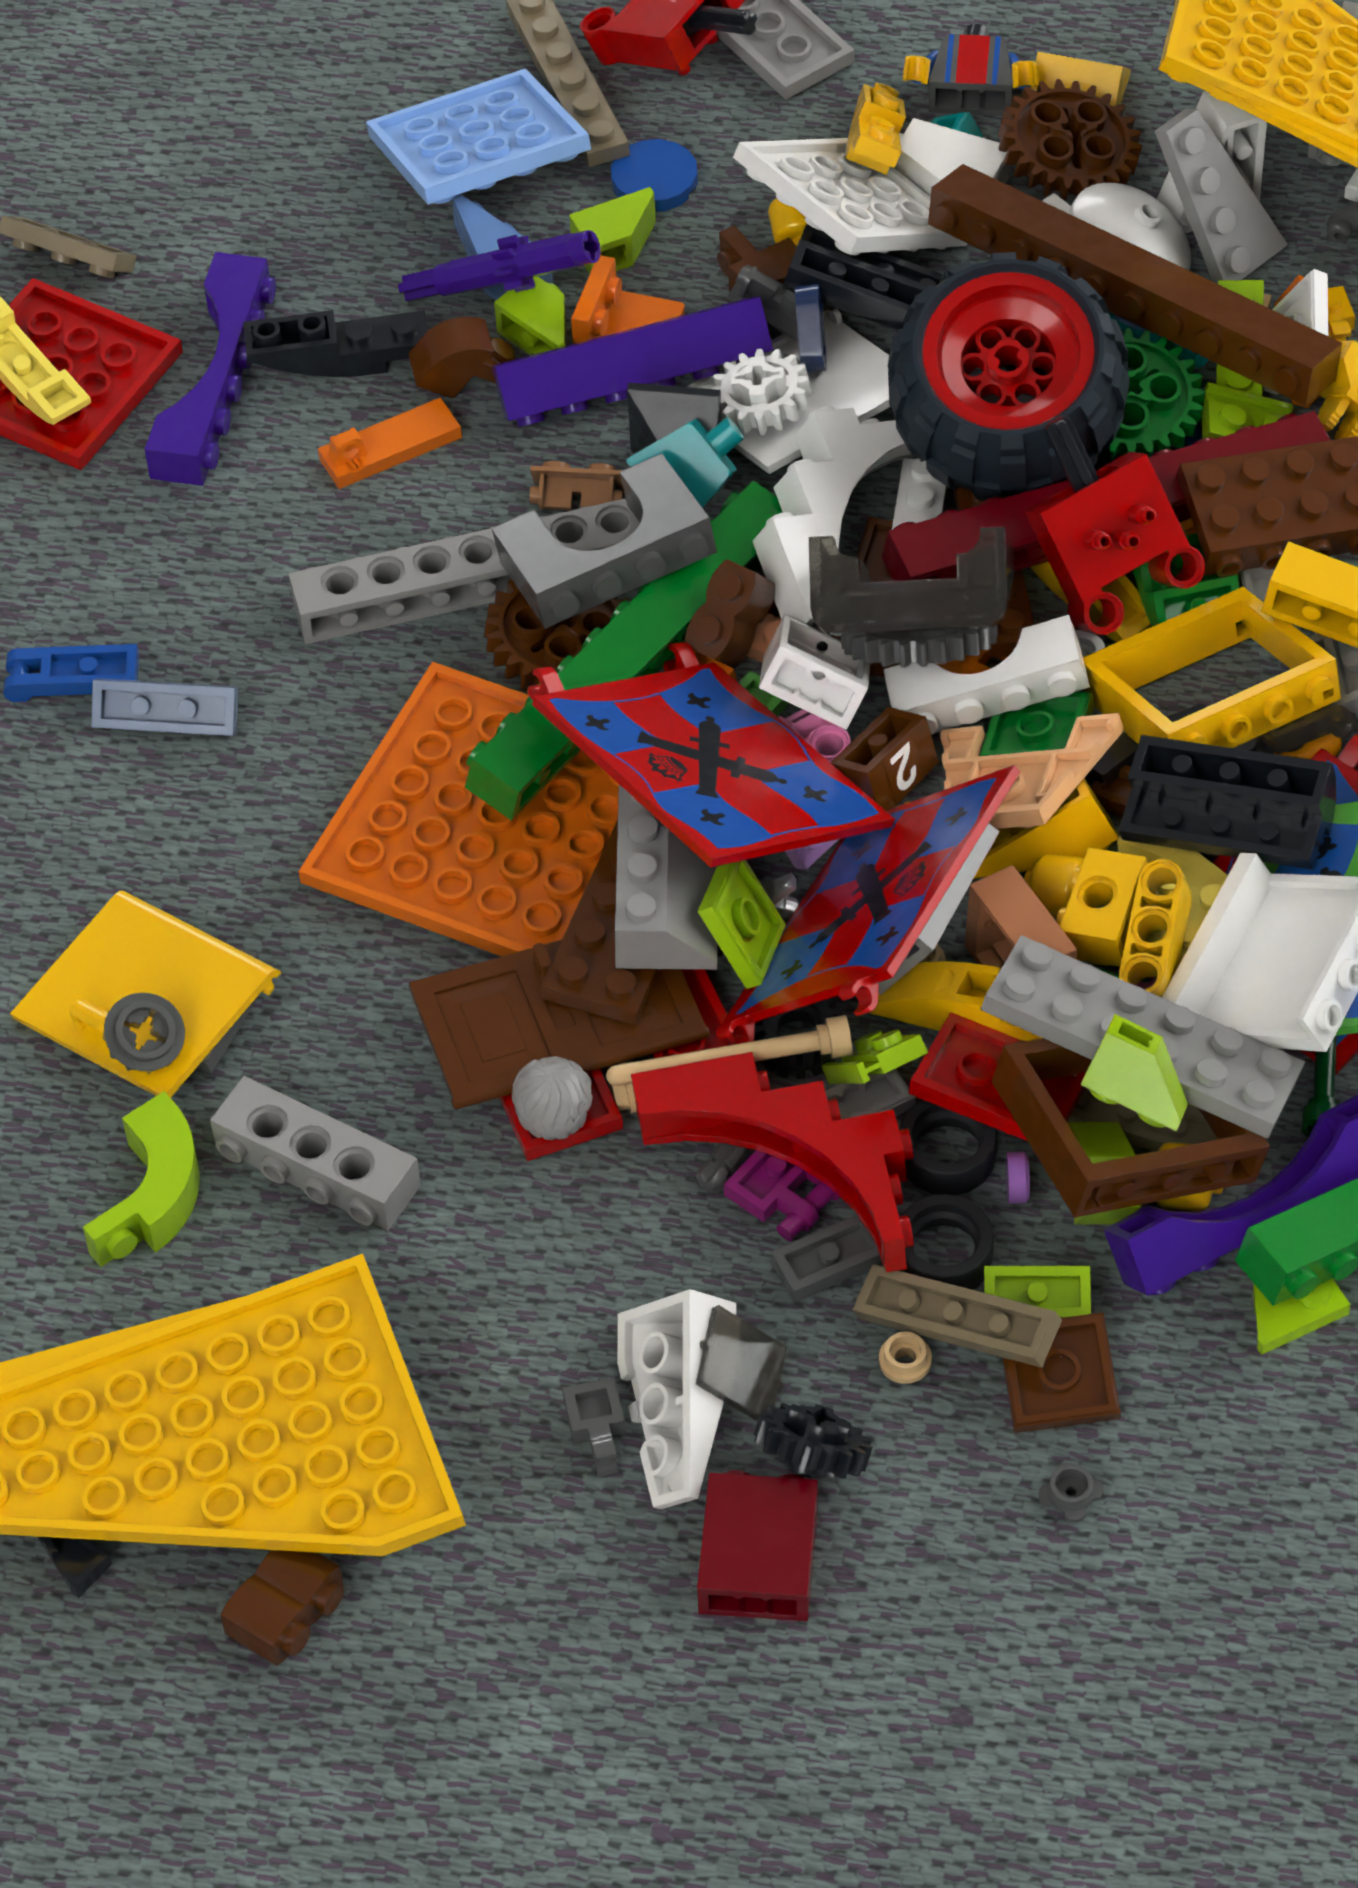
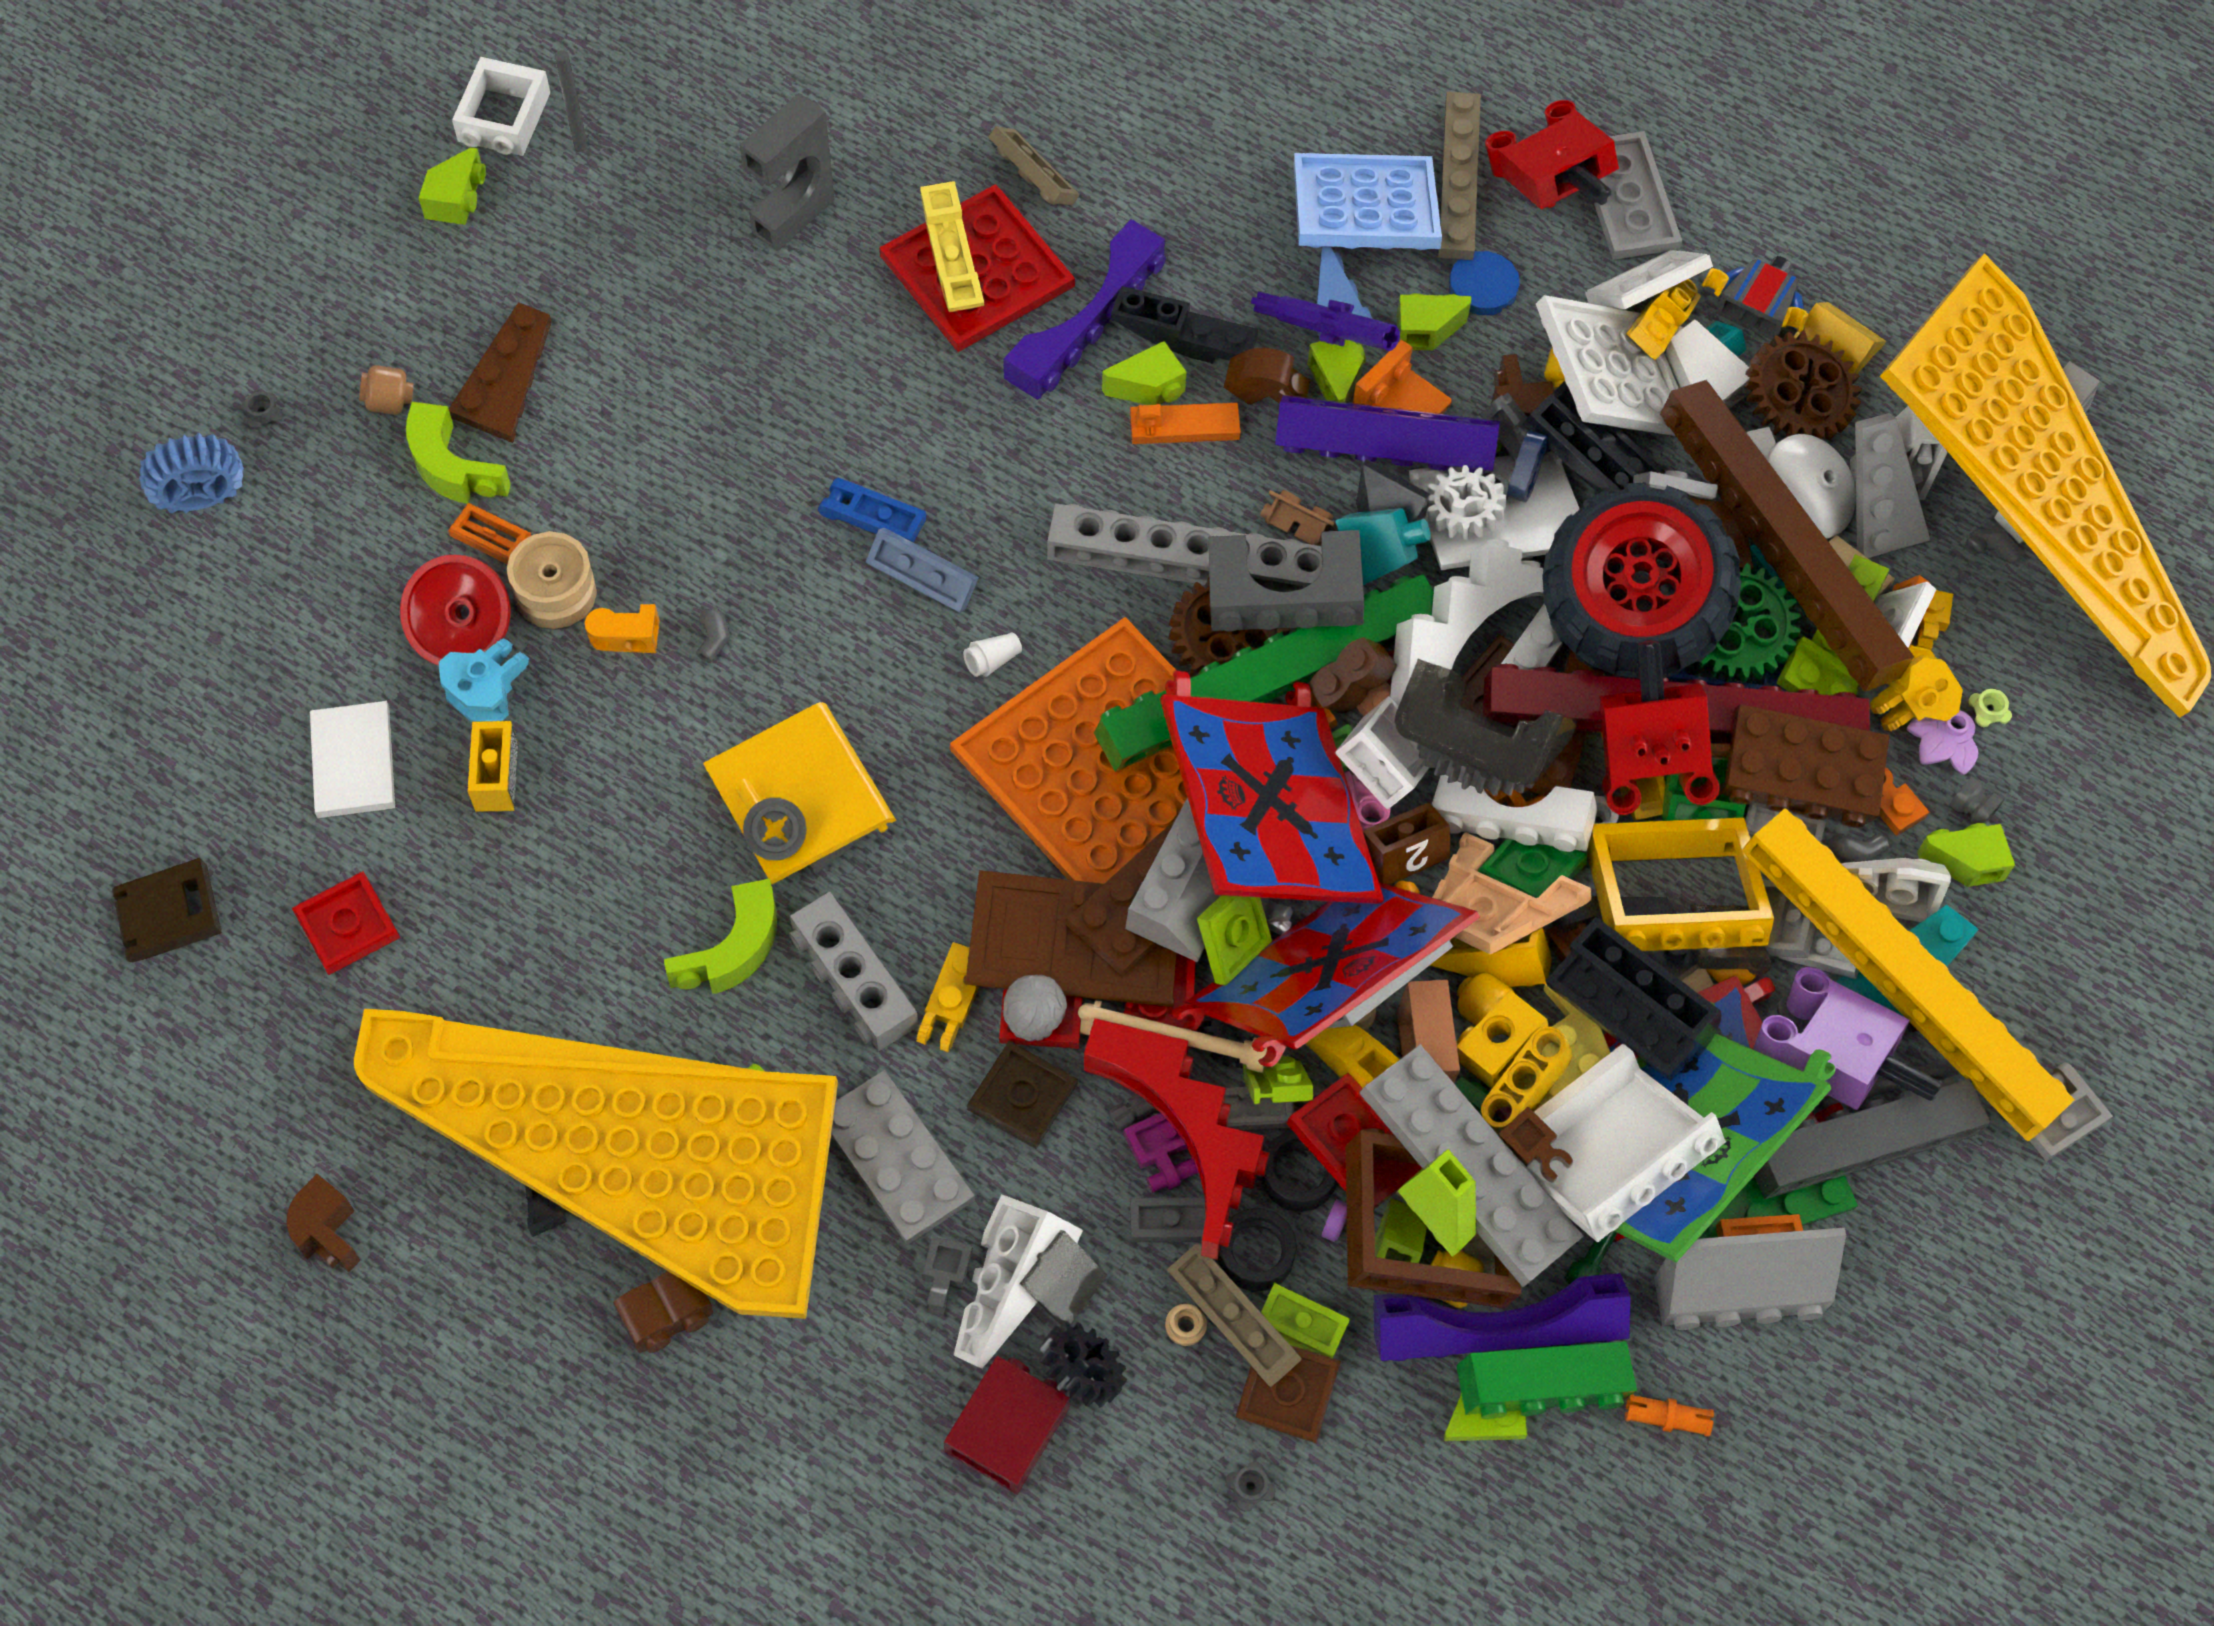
camera: 20 degrees right, 10 degrees up
(294, 762) = (991, 653): none -> white cone
(319, 408) = (1146, 377): none -> lime slope
(443, 1135) = (949, 999): none -> yellow hinge
(477, 1330) = (897, 1158): none -> light grey plate
(584, 1201) = (1022, 1094): none -> dark brown plate
(842, 95) = (1648, 279): none -> white tile
(1198, 986) = (1531, 1140): none -> reddish brown plate

